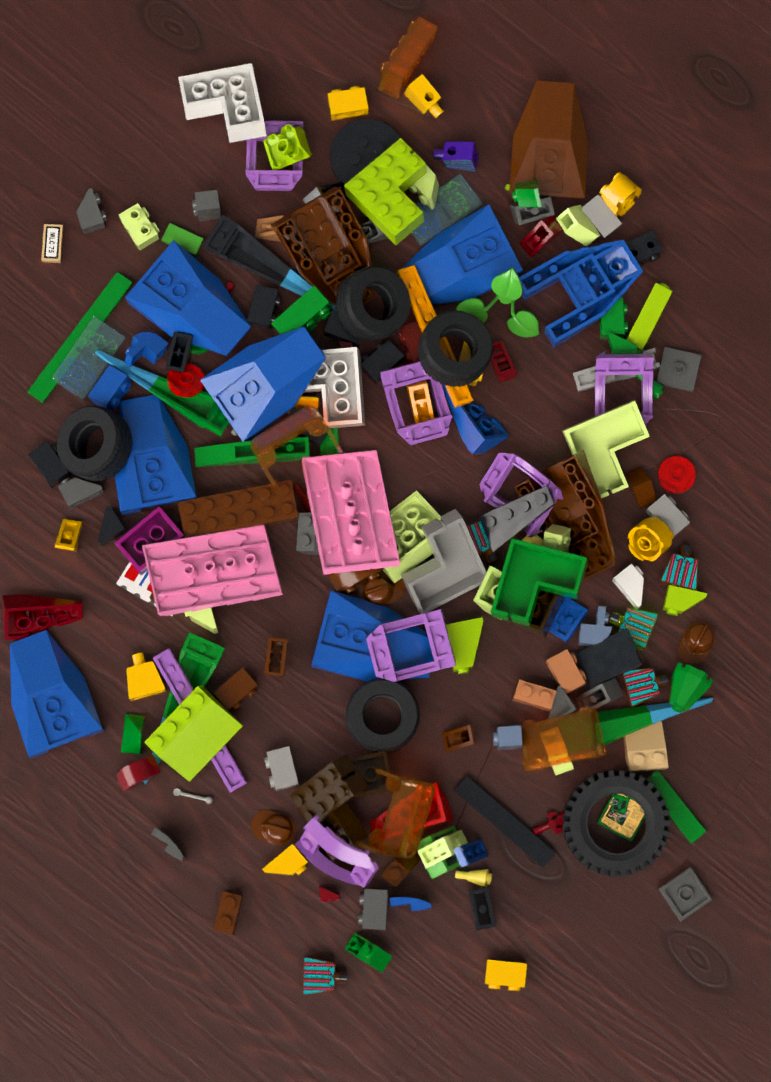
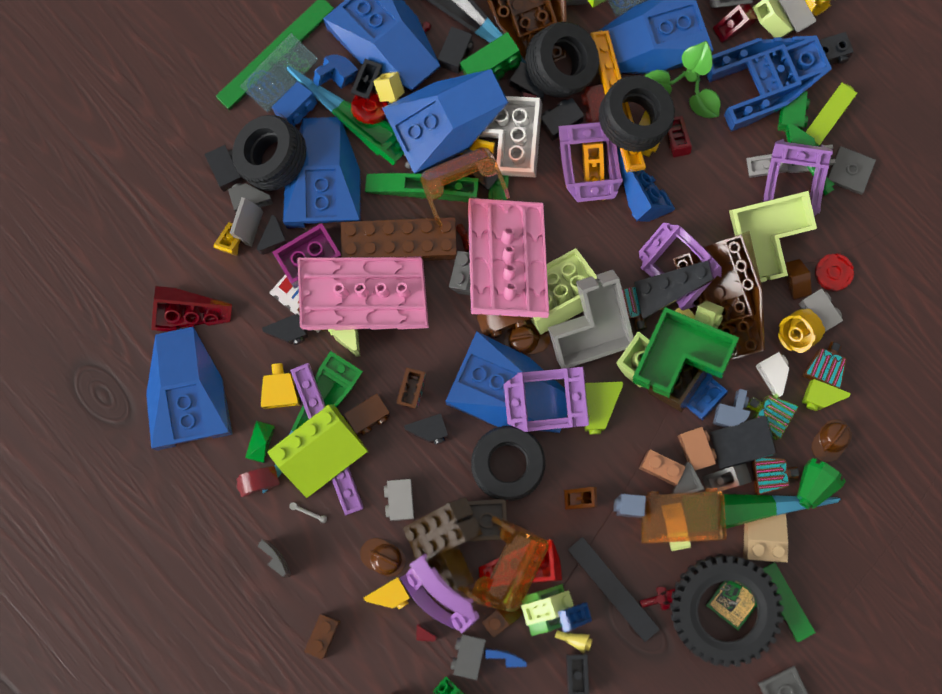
camera: 15 degrees right, 0 degrees up
(82, 516) = (246, 221): none -> light grey slope
(142, 618) = (287, 330): none -> black slope
(203, 356) = (389, 87): none -> light yellow brick
(299, 695) = (429, 429): none -> black slope

